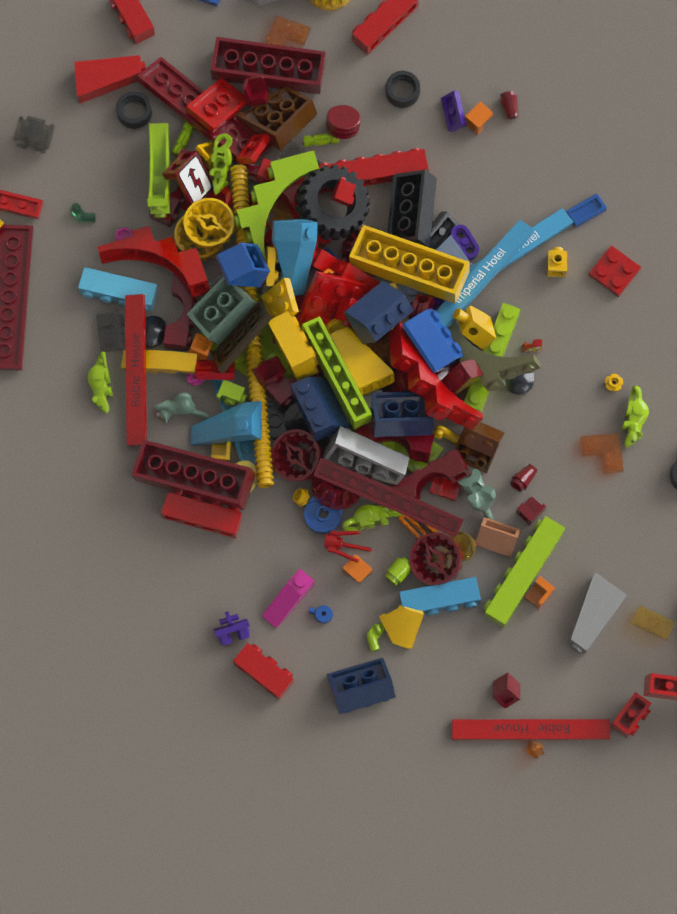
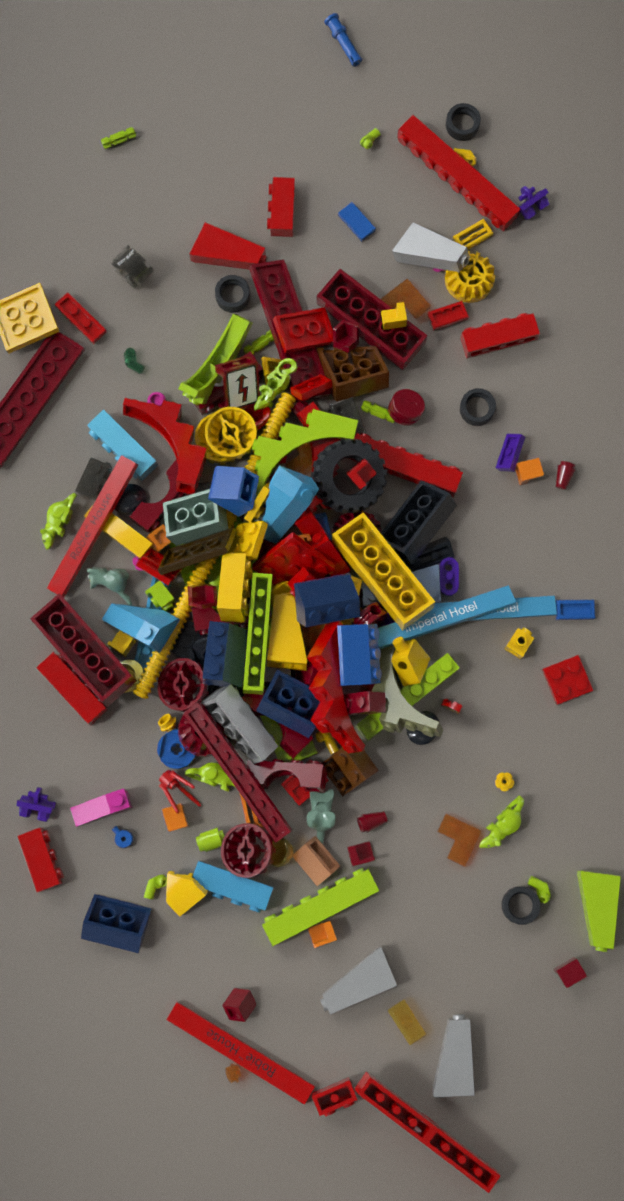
camera: 30 degrees right, 5 degrees up
(289, 51) = (394, 317): none -> yellow panel
(330, 27) = (447, 315): none -> red plate

